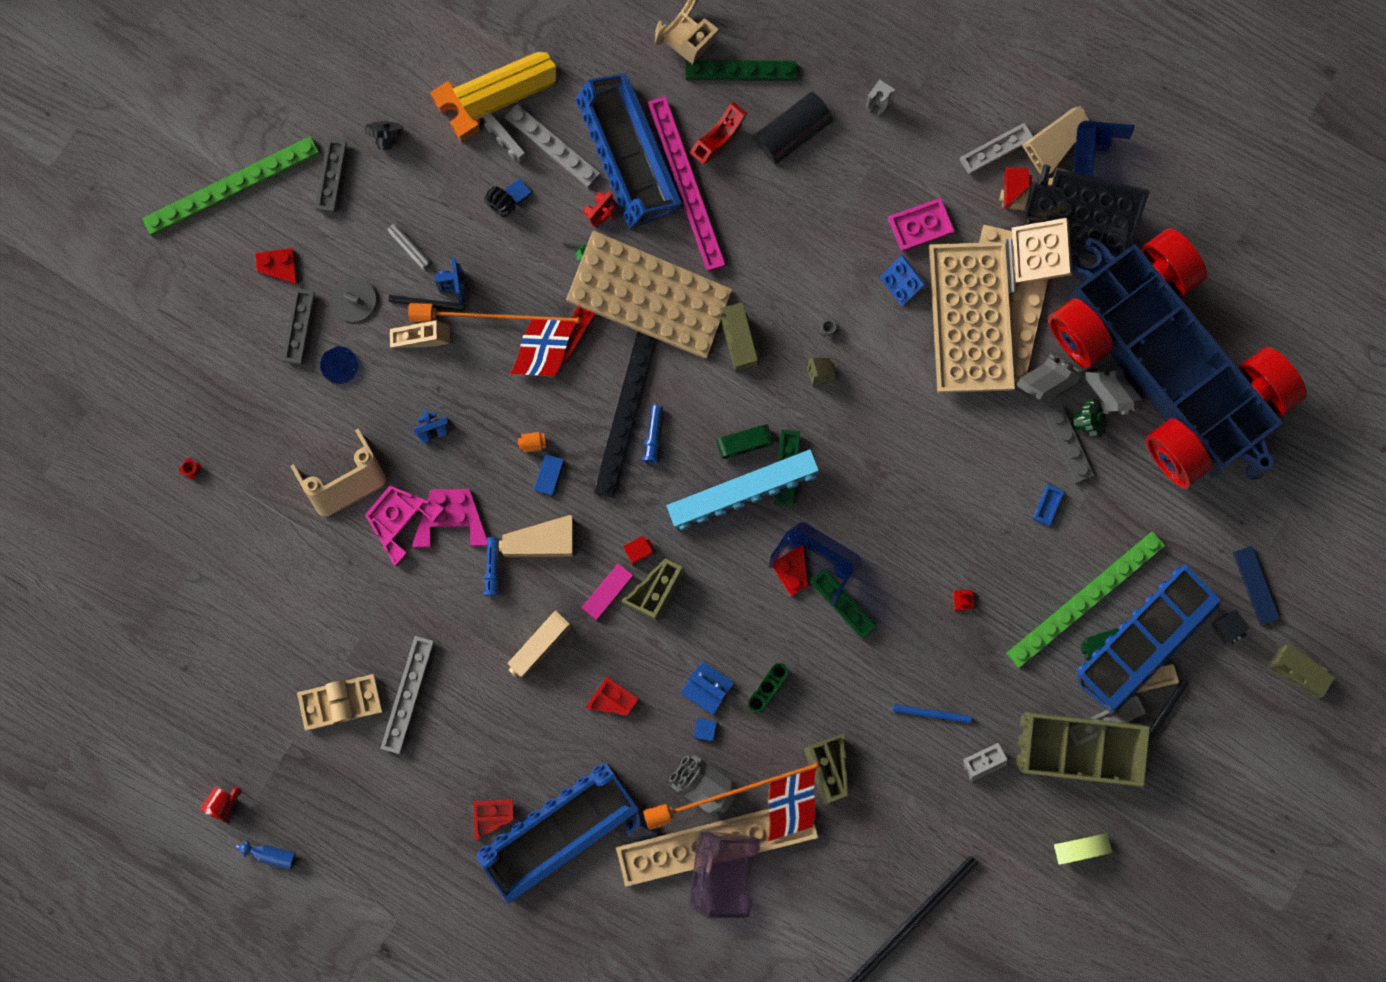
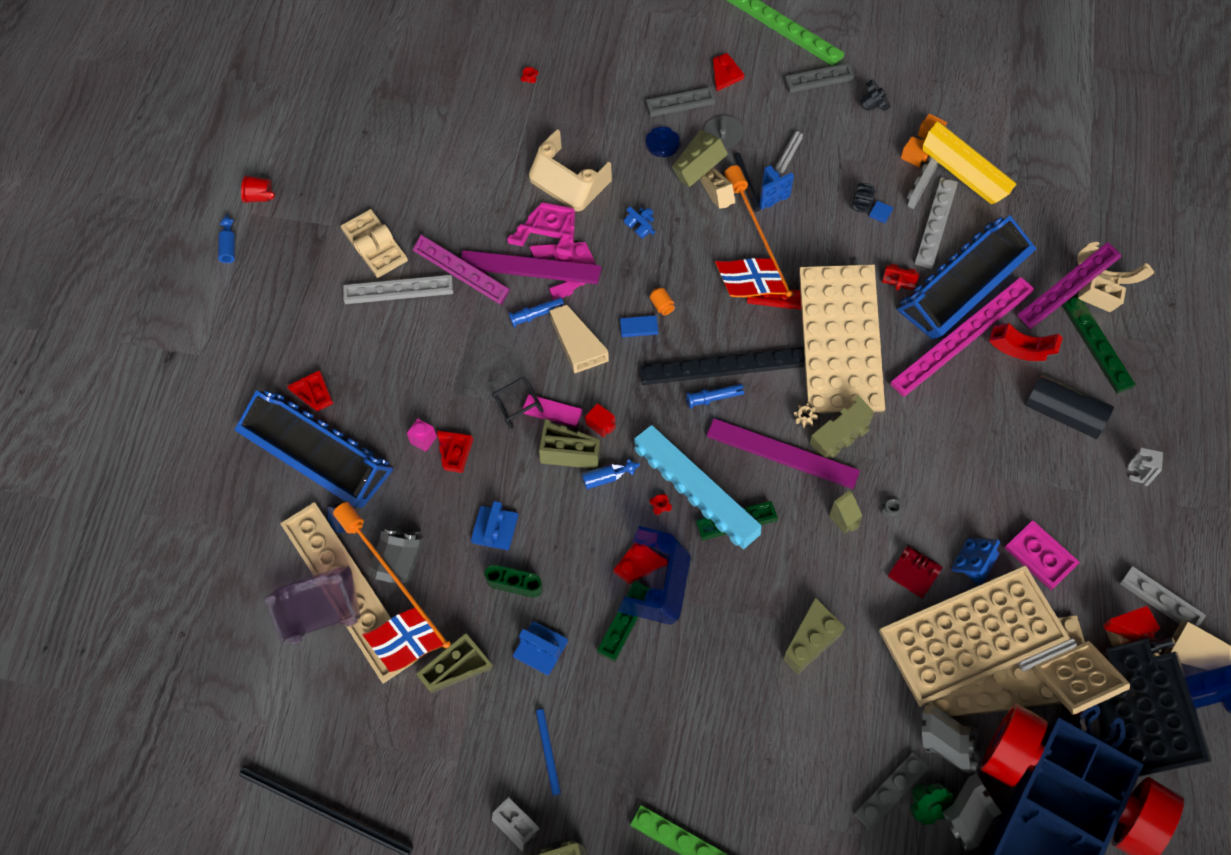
camera: 70 degrees right, 15 degrees down
(382, 338) = (699, 158): none -> olive wedge
(413, 624) = (461, 269): none -> magenta plate
(439, 555) = (533, 267): none -> magenta tile
(539, 645) = (480, 370): tan slope -> none
(585, 723) = (421, 435): none -> dark pink brick
(606, 635) = (508, 418): none -> black piece
(683, 67) = (1069, 285): none -> magenta plate
(695, 565) = (607, 474): none -> blue wheel
(705, 729) = (454, 541): blue tile -> none
(712, 357) = (808, 411): none -> tan gear
(736, 399) = (783, 453): none -> magenta tile
(739, 525) = (663, 498): none -> red plate
(744, 441) = (745, 473): dark green beam -> none
(838, 686) = (540, 648): none -> blue bracket
(893, 337) = (915, 572): none -> dark red hinge
(920, 449) = (813, 637): none -> olive wedge
(963, 600) = (678, 740): red tile -> none
(1048, 505) = (817, 793): blue tile -> none

